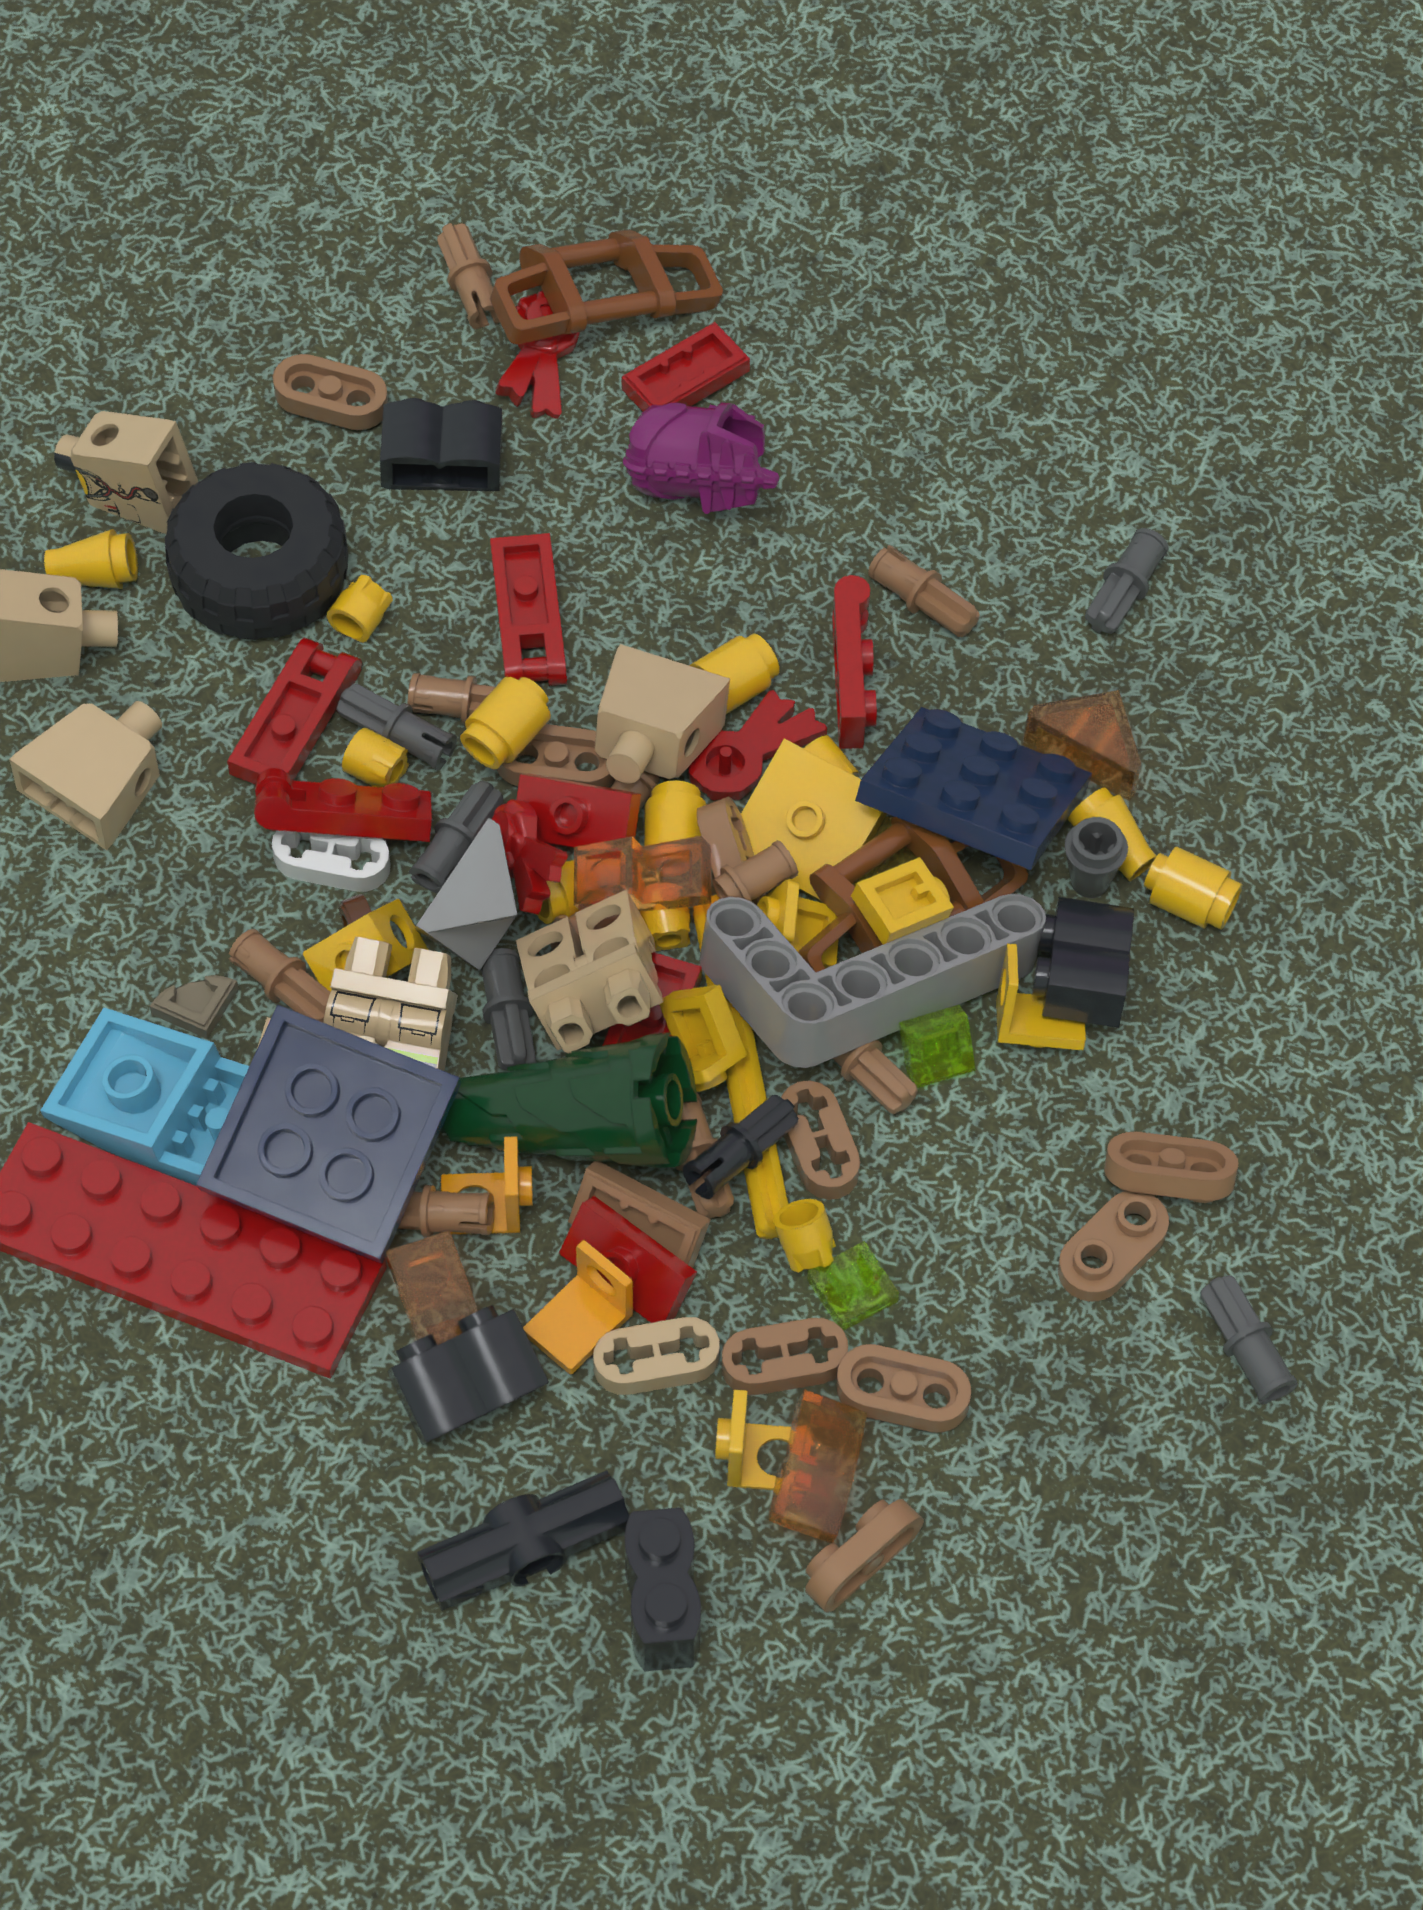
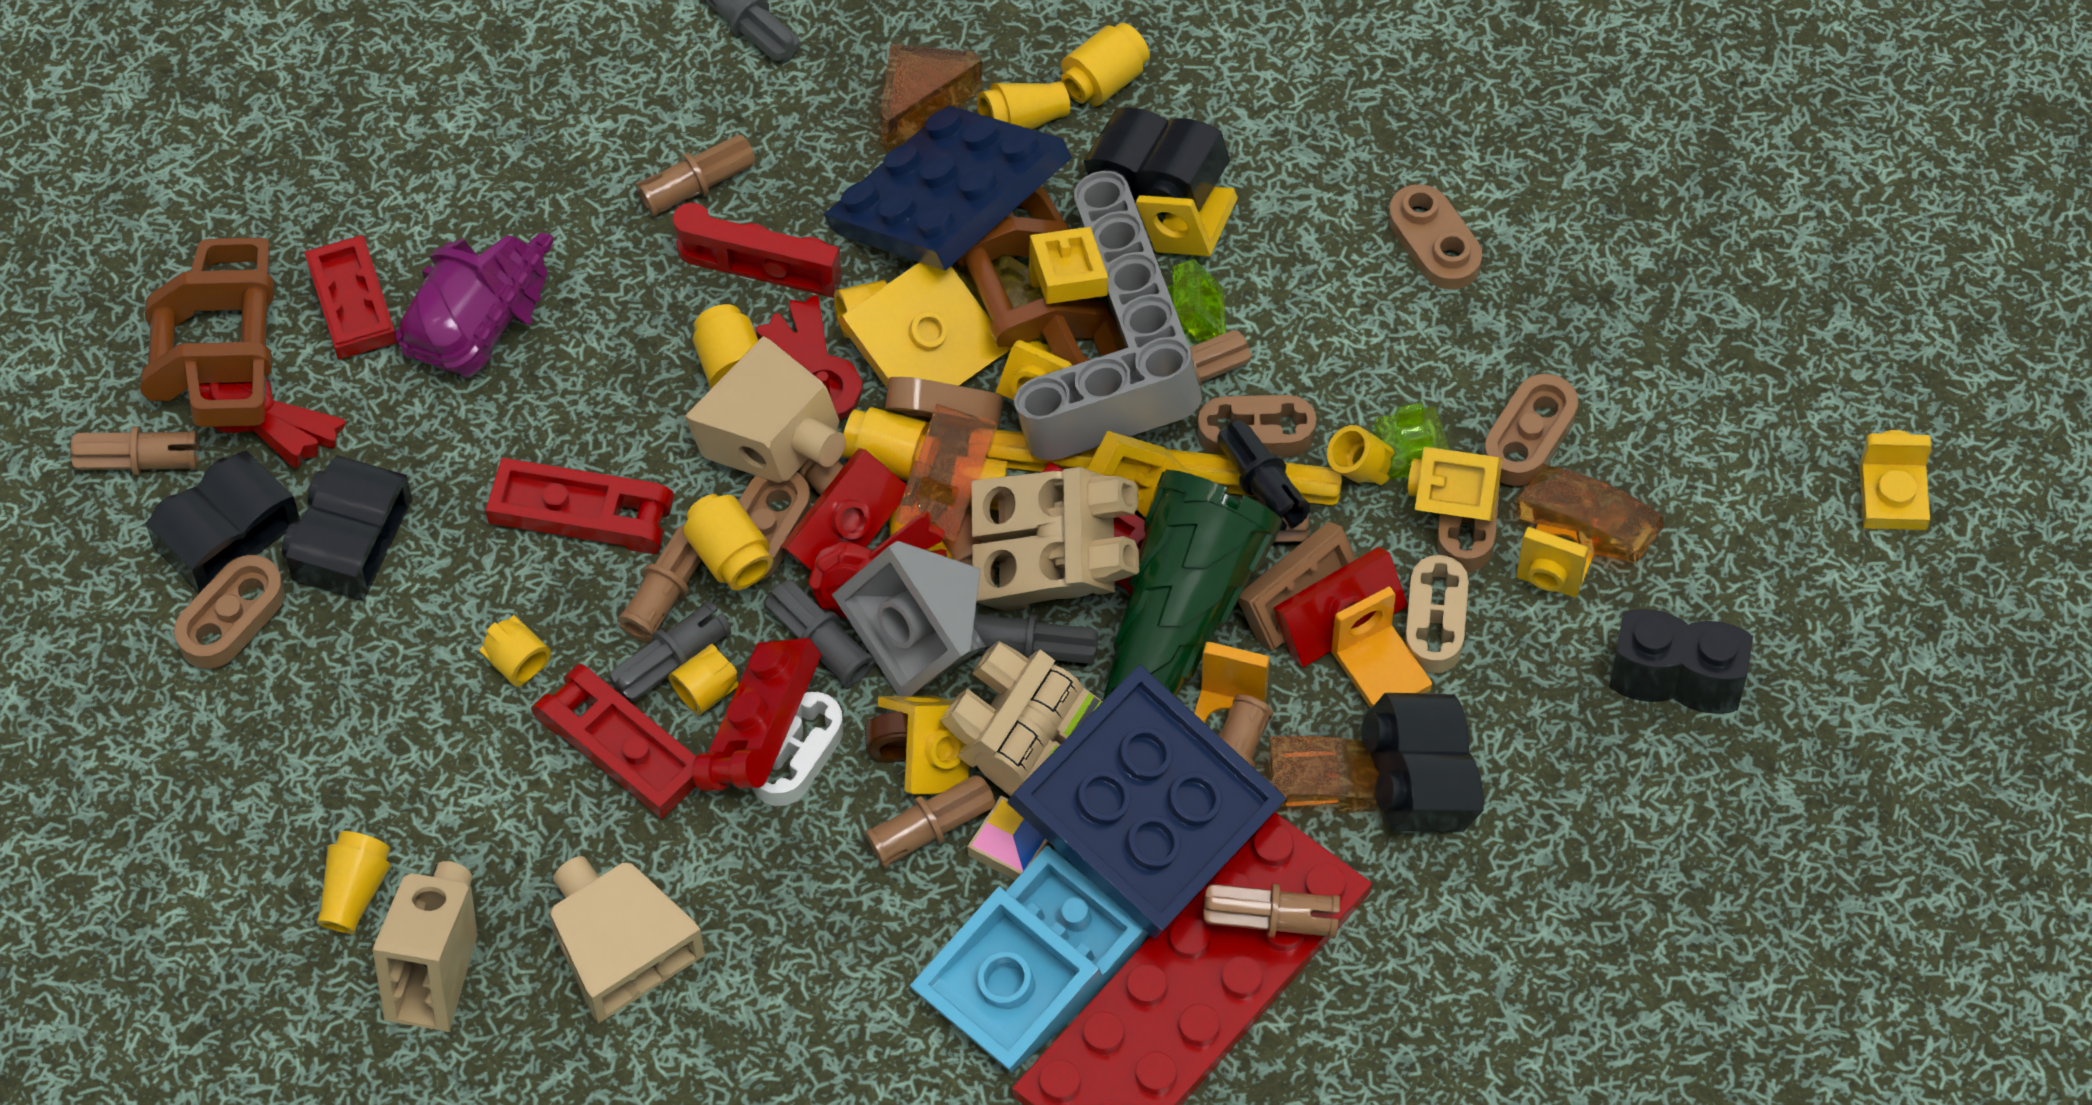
camera: 70 degrees left, 0 degrees up
(130, 466) = (259, 809): tan torso -> none
(196, 1004) = (923, 910): dark tan tile -> none
(252, 1277) = (1270, 910): none -> medium nougat axle
(267, 592) = (425, 769): black tyre -> none
(417, 353) = (227, 516): none -> black brick
(524, 1539) = (1596, 763): black piece -> none
(756, 874) = (990, 377): medium nougat pin -> none
(793, 1321) = (1455, 483): none -> yellow bracket
(880, 1536) = (1693, 512): medium nougat plate -> none
(969, 1763) = (1895, 481): none -> yellow bracket
(1094, 855) = (1056, 110): dark grey cone -> none
(1171, 1166) = (1378, 166): medium nougat plate -> none
(1247, 1339) = (1558, 166): dark grey axle -> none

